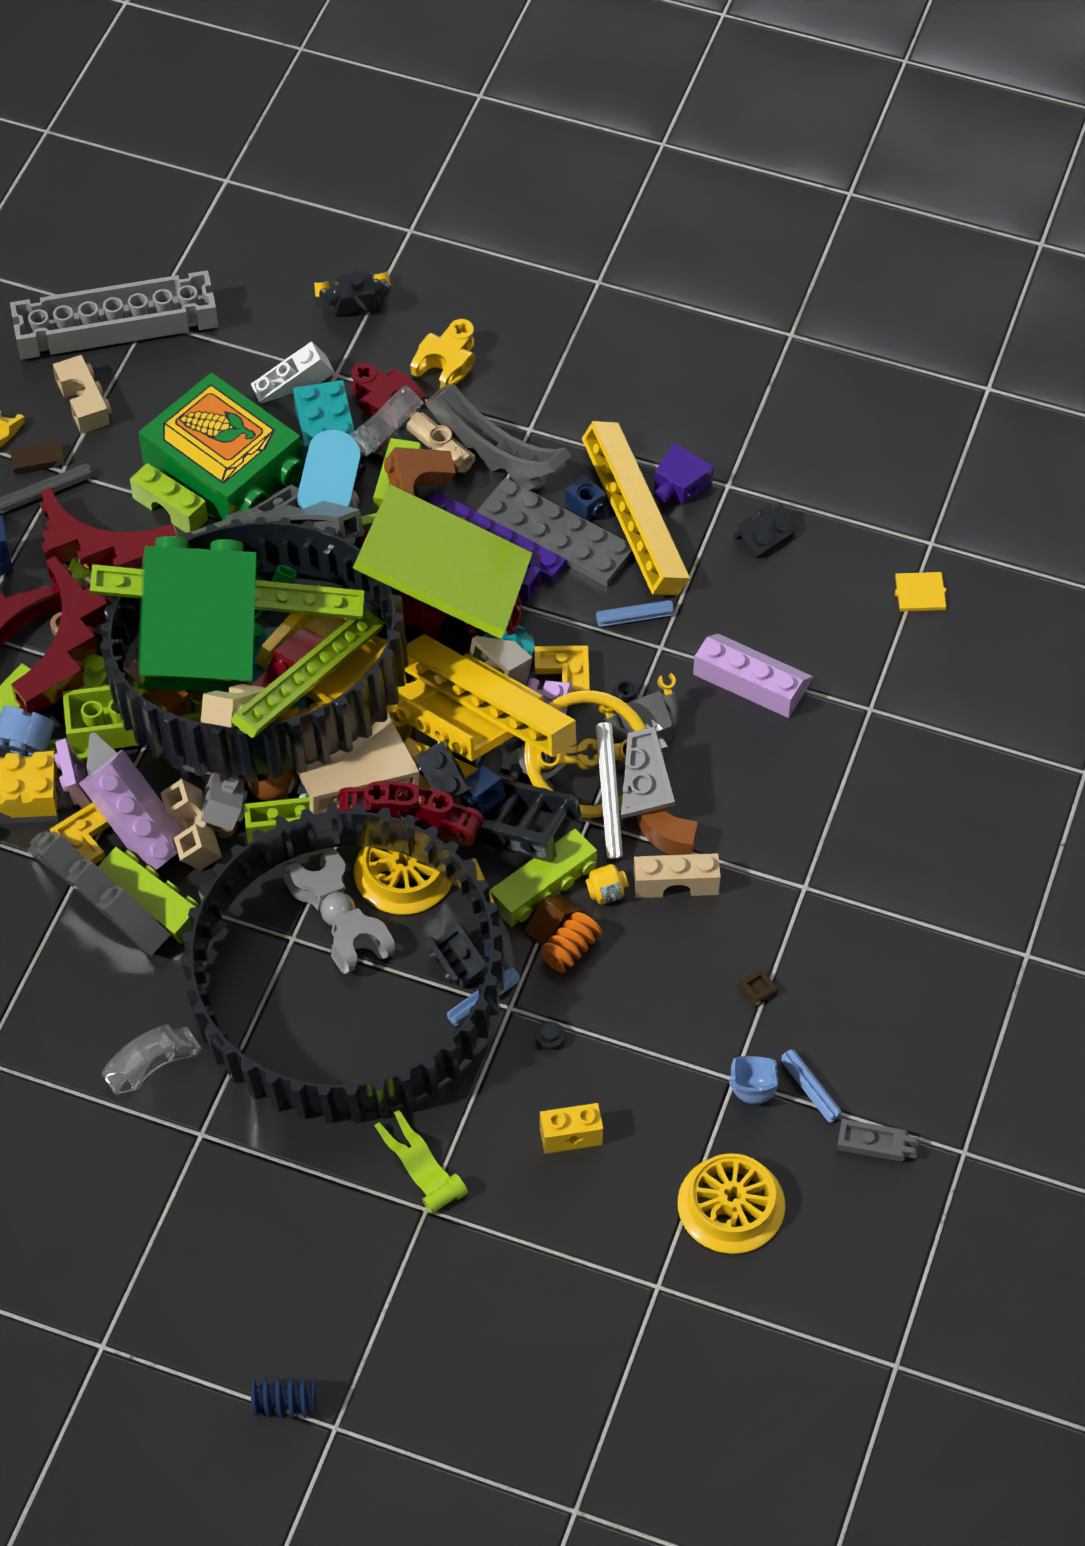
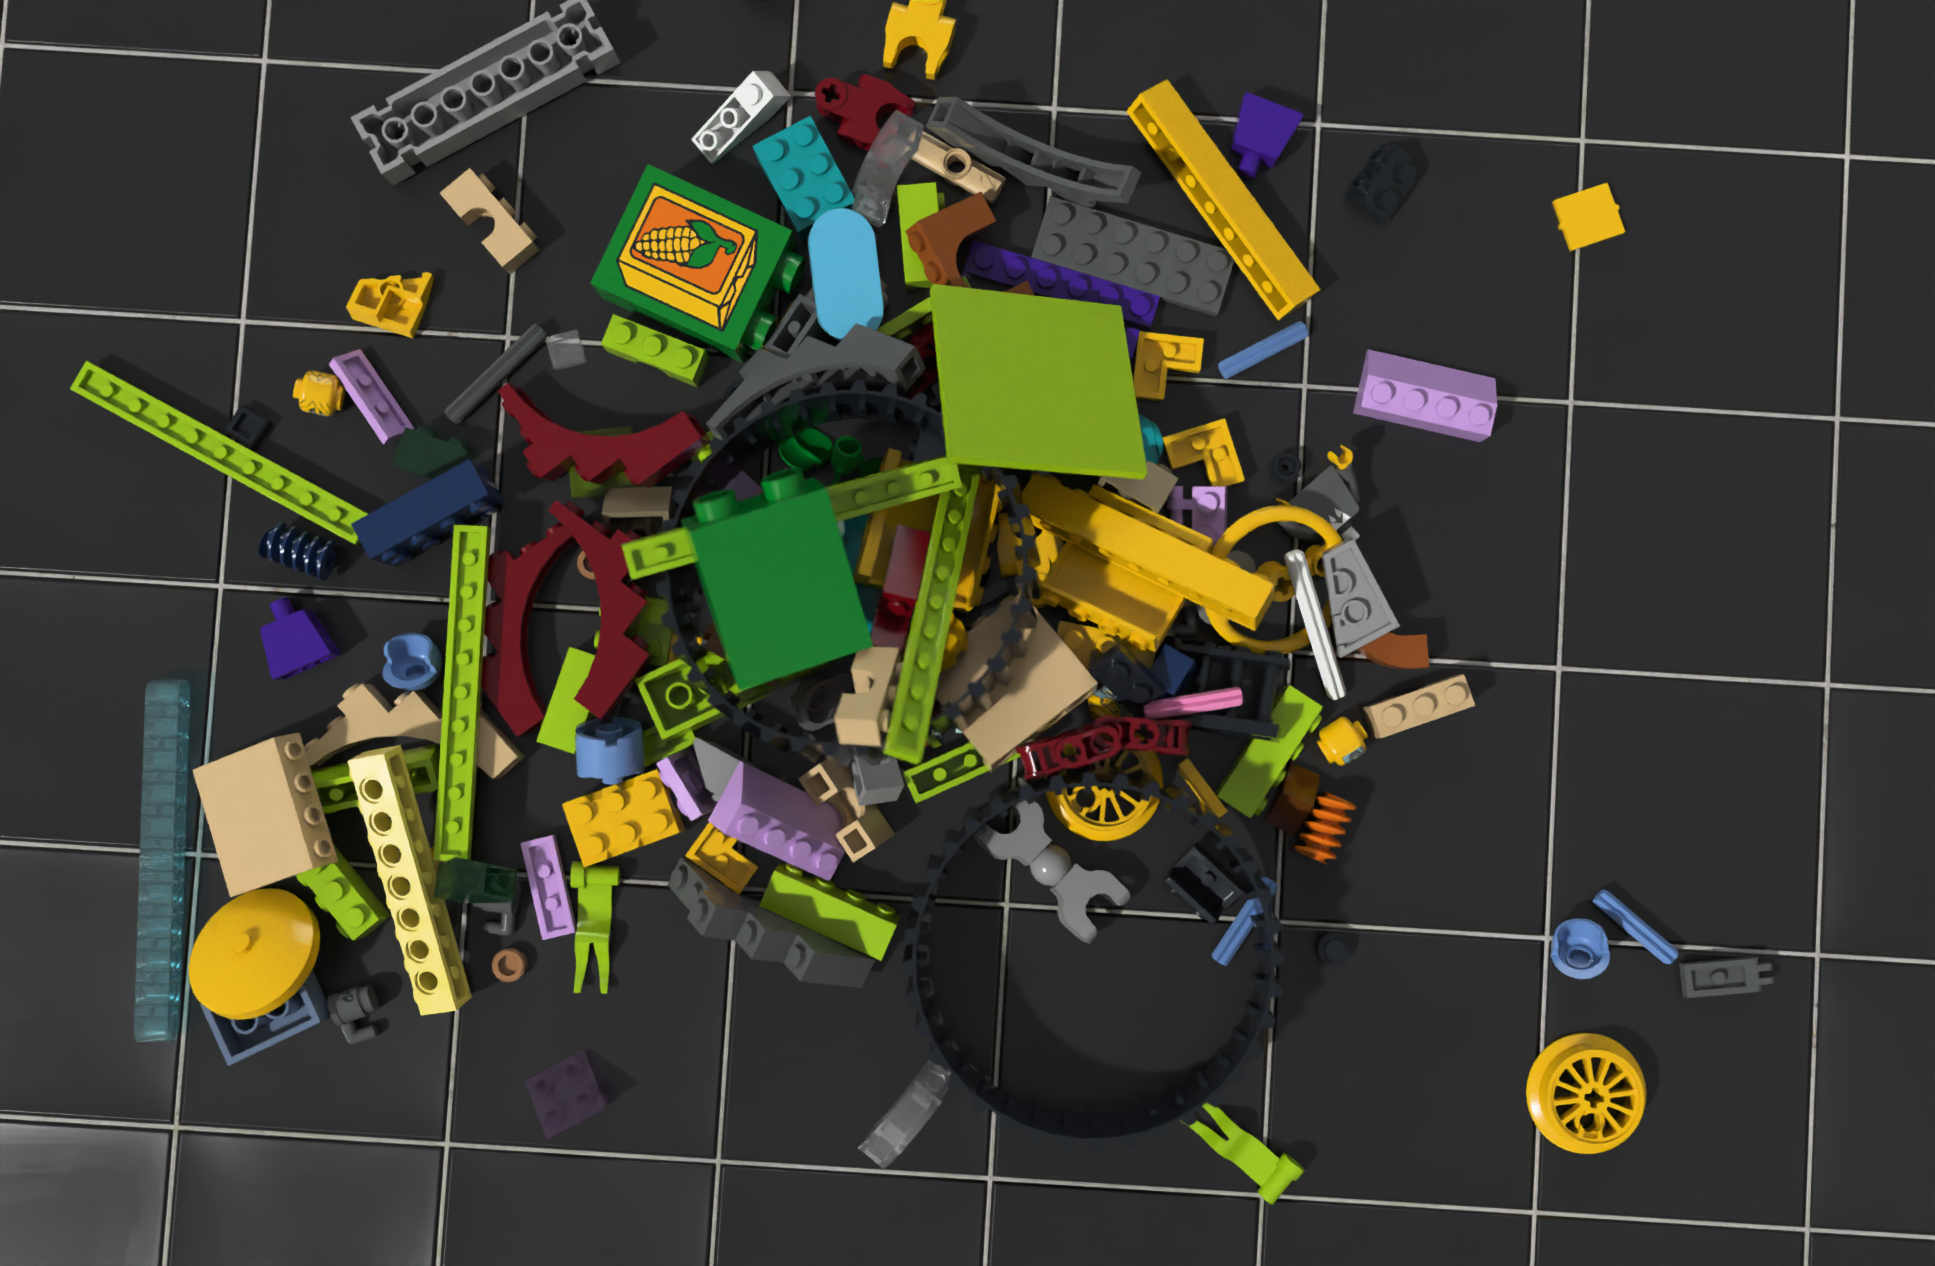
camera: 15 degrees left, 30 degrees up
(37, 457) = (470, 328): dark brown tile -> none
(102, 487) = (566, 350): none -> clear tile
(499, 812) = (1193, 703): none -> bright pink axle
(552, 595) = (1161, 353): none -> yellow plate
(571, 1128) = (1395, 1064): yellow brick -> none
(585, 498) = (1155, 188): dark blue brick -> none
(758, 988) = (1544, 818): dark brown tile -> none

